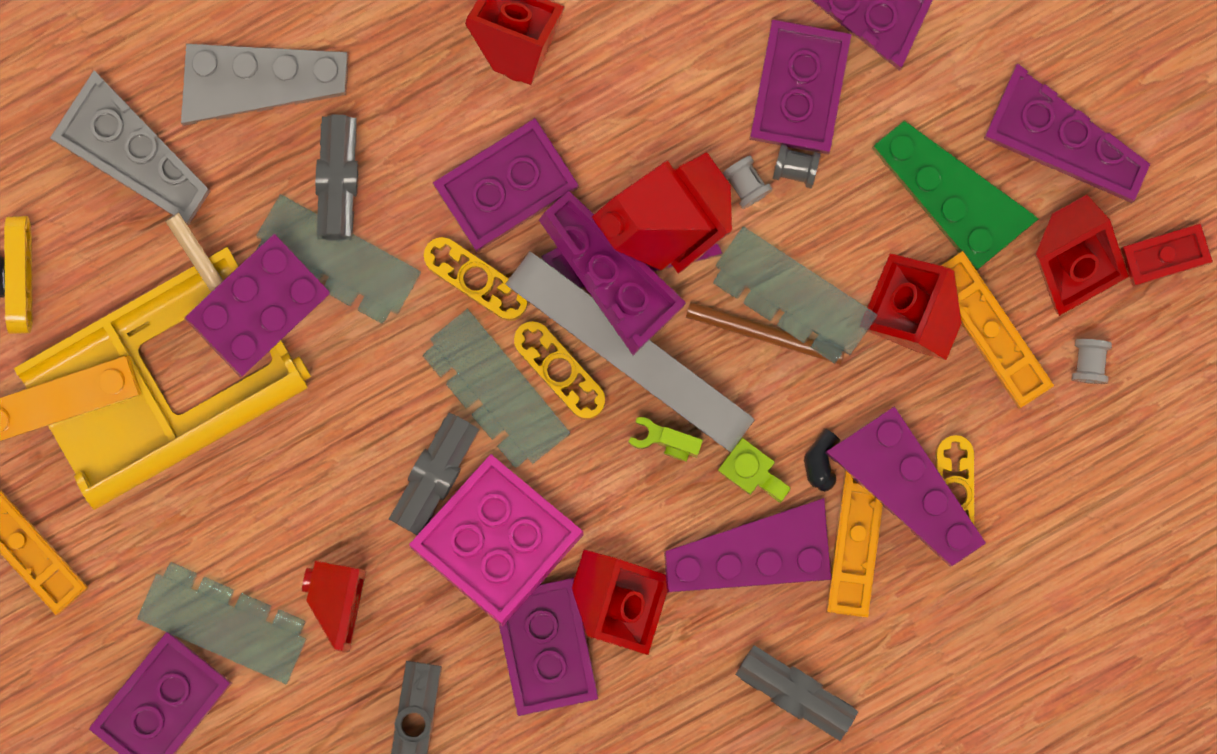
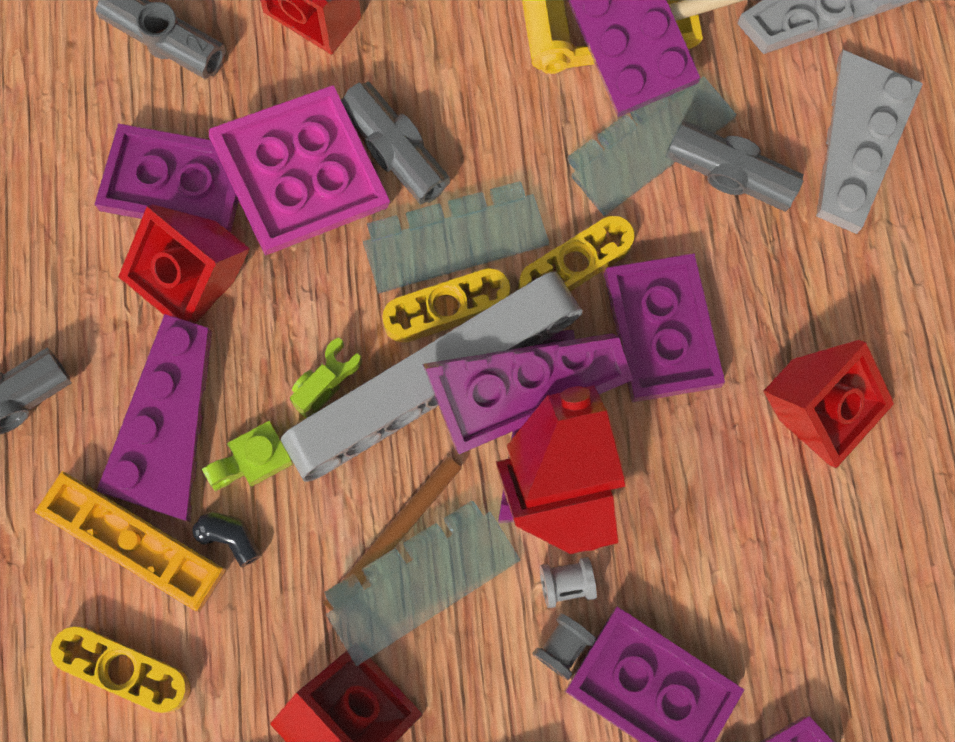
camera: 110 degrees right, 10 degrees down
(903, 478) = (159, 614): magenta wing -> none

